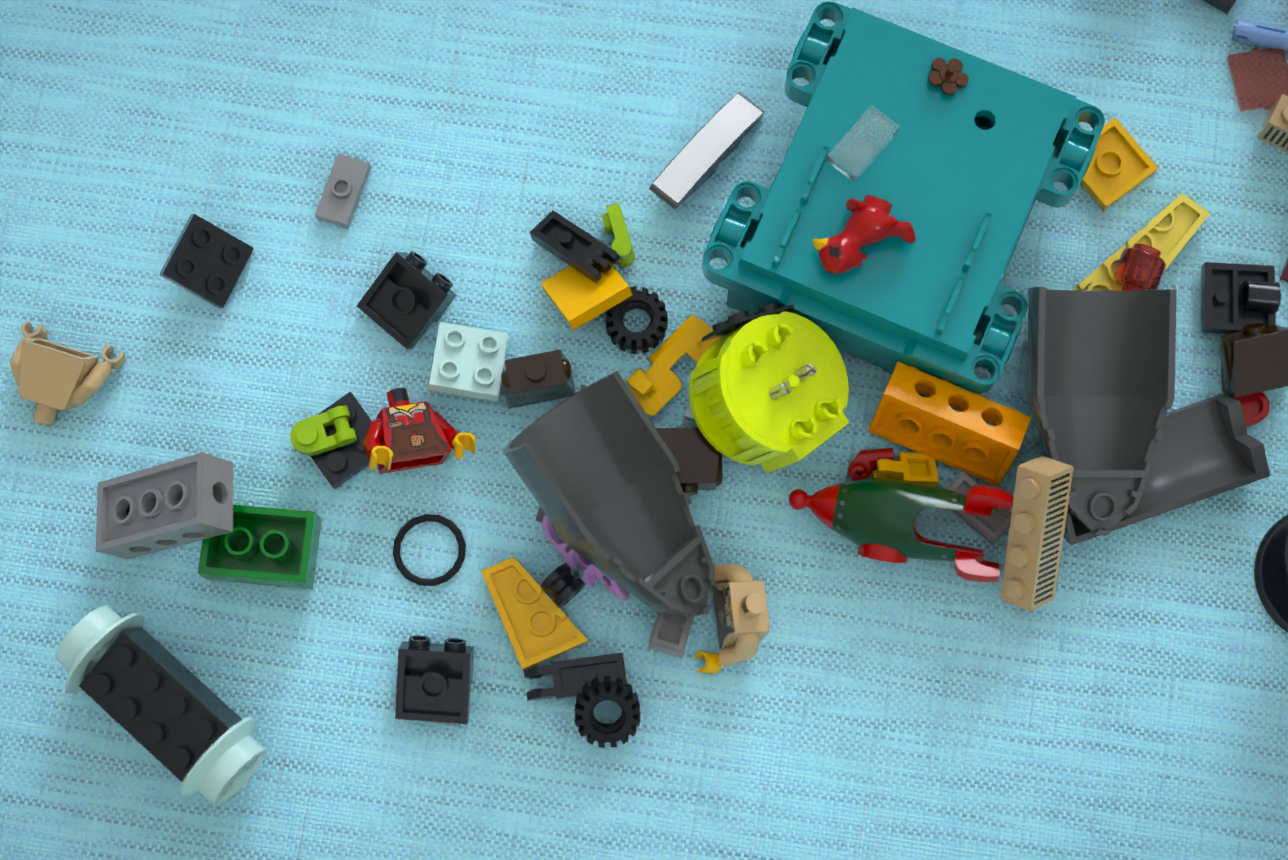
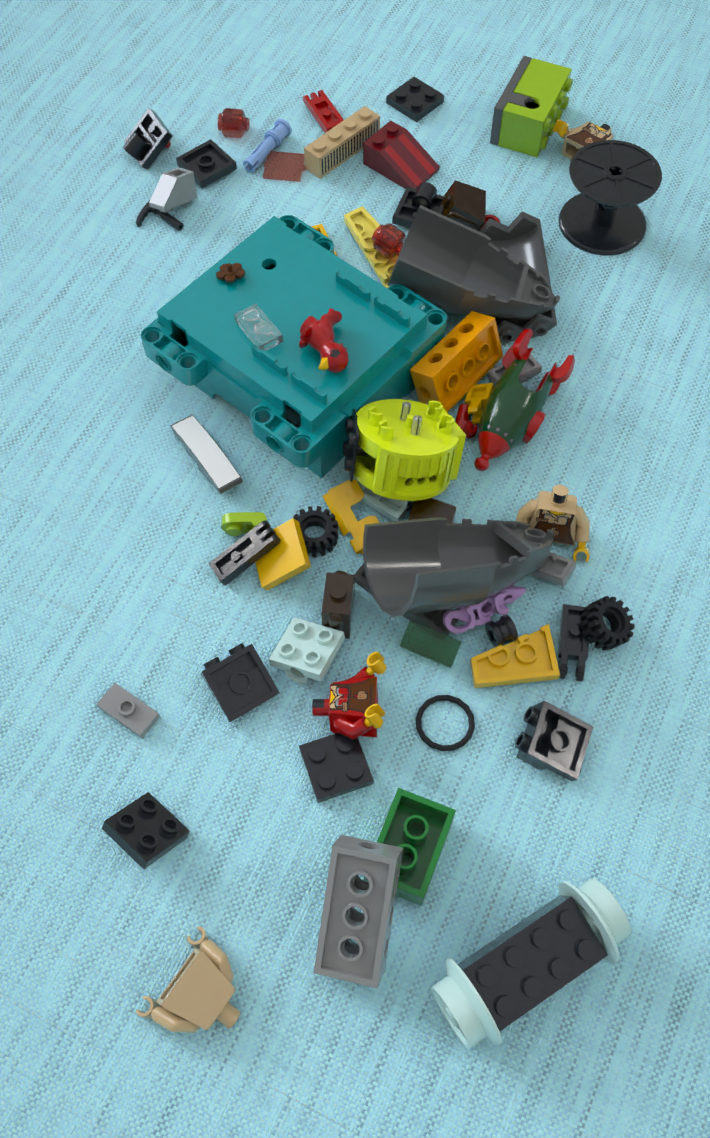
camera: 75 degrees left, 15 degrees down
(310, 435) = (329, 780): lime plate -> none
(519, 511) = (430, 643): none -> clear green tile
(1036, 532) = (549, 328): tan brick -> none

